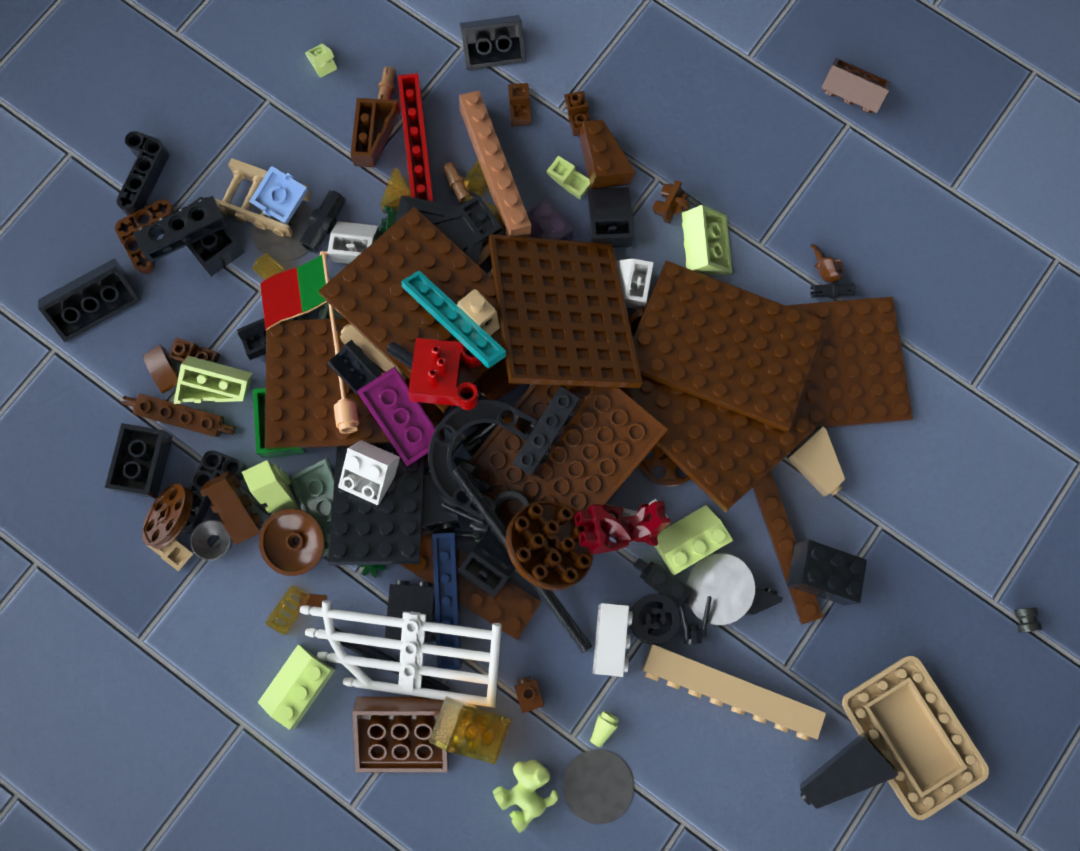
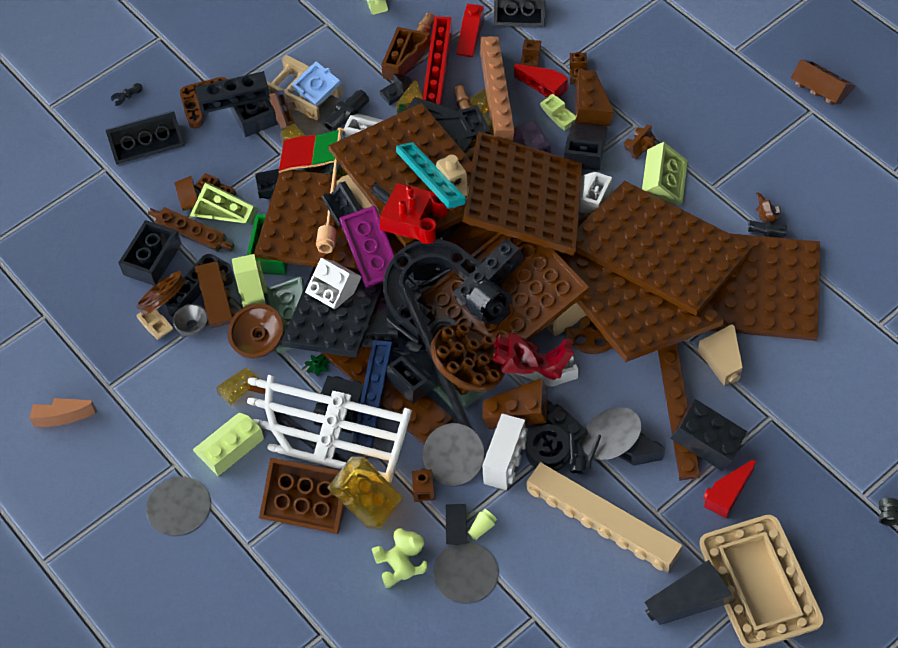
camera: 20 degrees right, 20 degrees down
(60, 232) = (136, 88): none -> black piece
(89, 691) = (61, 412): none -> nougat slope
(134, 199) = (220, 49): black beam -> none
(247, 237) = (282, 108): none -> plate
(259, 775) = (178, 506): none -> flat silver sticker
(376, 179) = (394, 91): none -> black slope
(442, 83) = (470, 30): none -> red slope
(543, 138) = (542, 79): none -> red slope
(553, 650) = (453, 454): none -> flat silver sticker
(557, 468) = (488, 302): none -> black brick
(575, 733) = (456, 524): none -> black slope
(614, 579) = (523, 402): none -> reddish brown wedge
(691, 539) = (596, 395): yellowish green slope -> none
(855, 634) = (728, 489): none -> red slope

